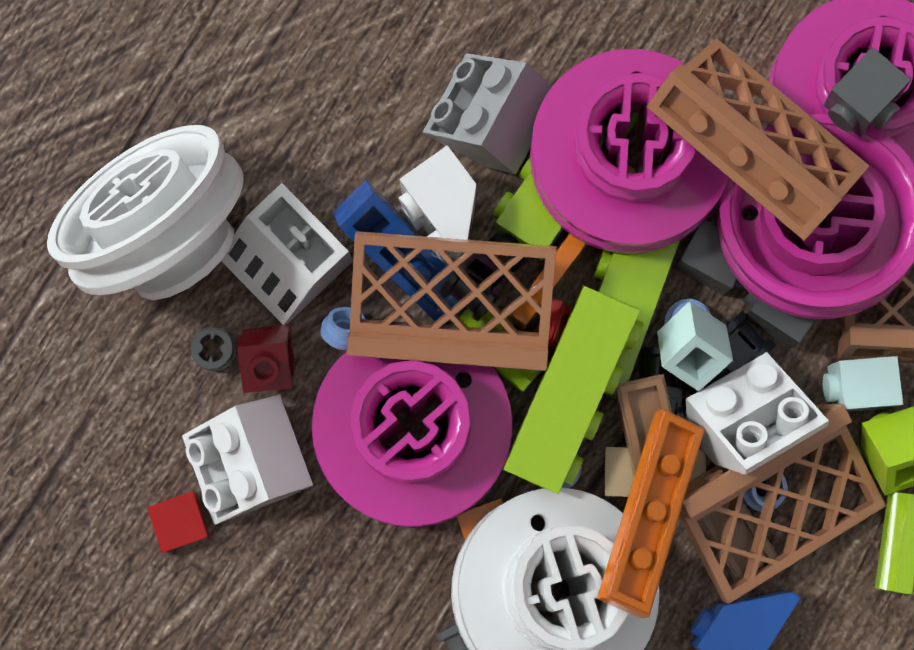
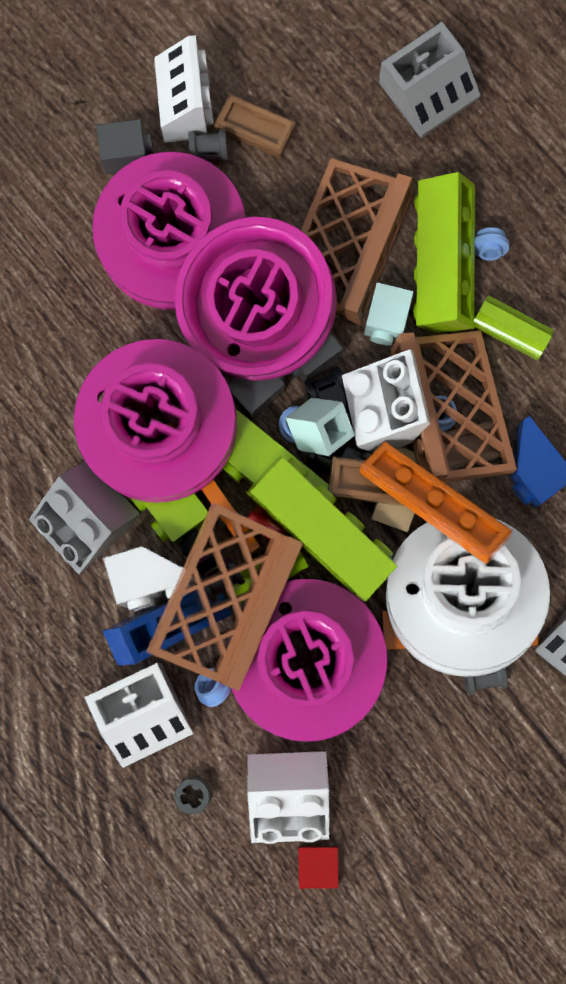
camera: 70 degrees left, 0 degrees up
(151, 216) = (74, 811): white wheel -> none
(266, 358) = (216, 755): dark red brick -> none
(756, 159) = (190, 337): nougat fence -> none
(866, 94) = (180, 233): dark grey brick -> none

